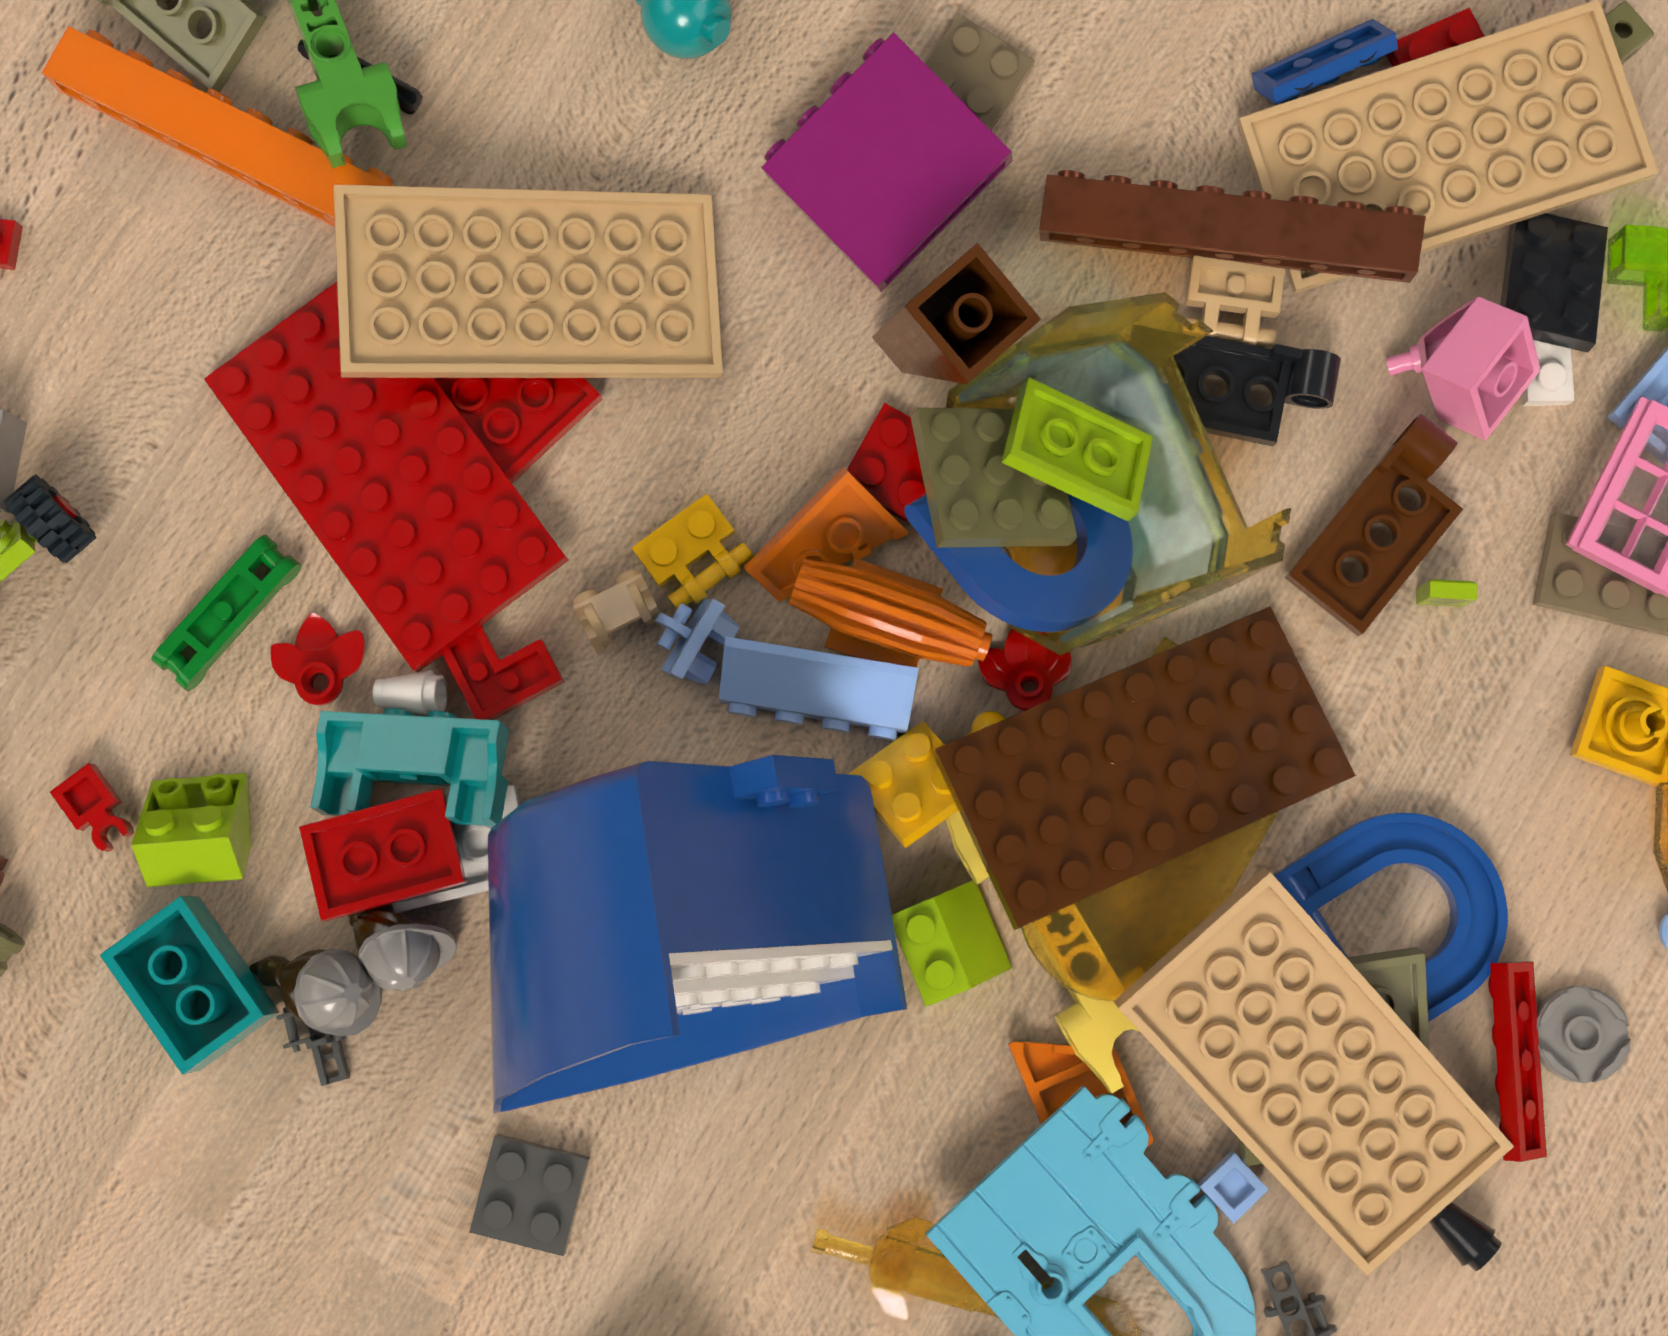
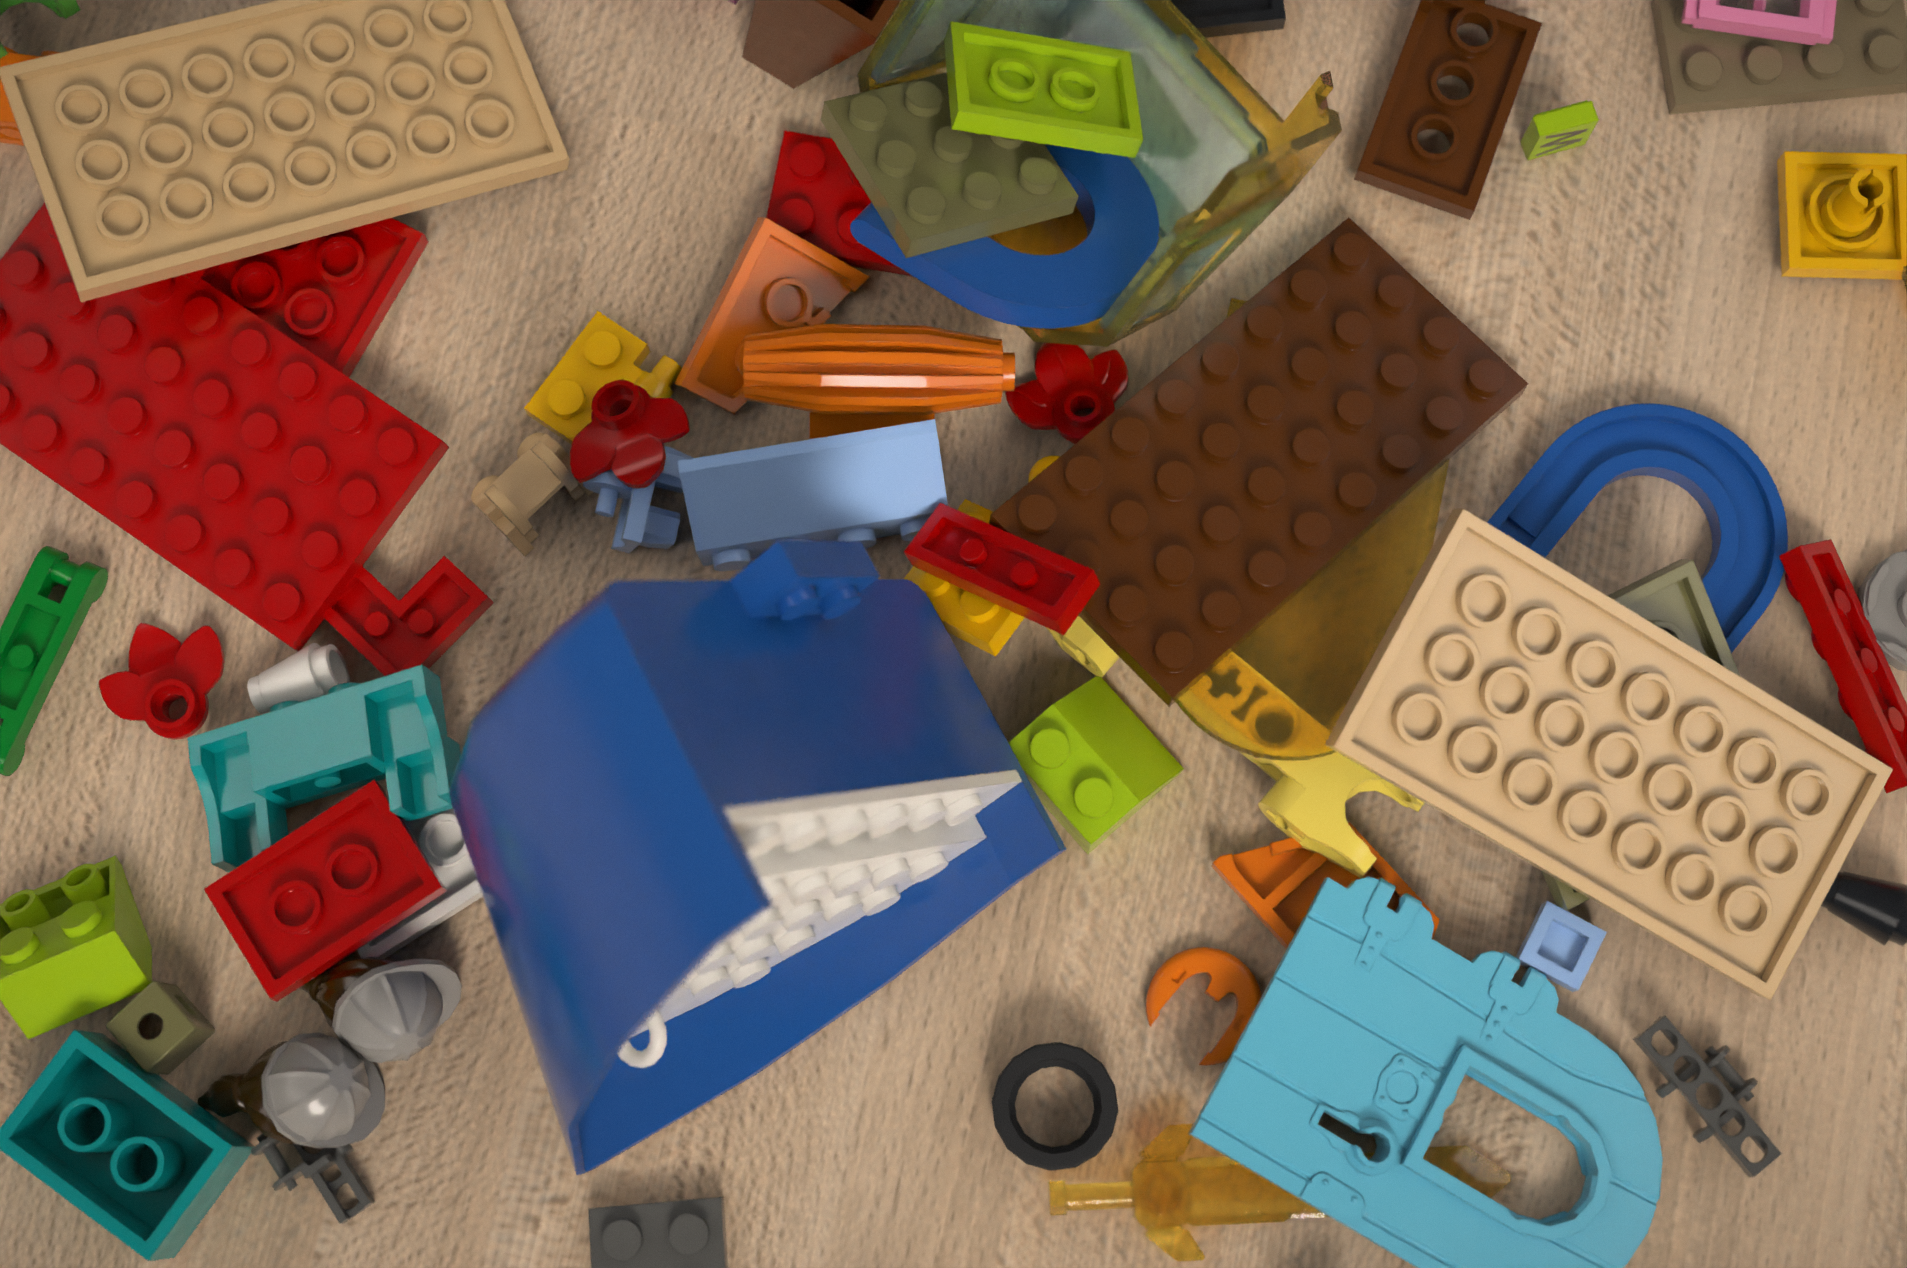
camera: 15 degrees left, 5 degrees down
(253, 913) = (181, 1033): none -> olive piece
(697, 604) = (627, 435): none -> red plate
(832, 1214) = (1104, 1102): none -> black tyre
(930, 791) = (1002, 568): none -> red plate
(991, 1125) = (1226, 976): none -> orange head

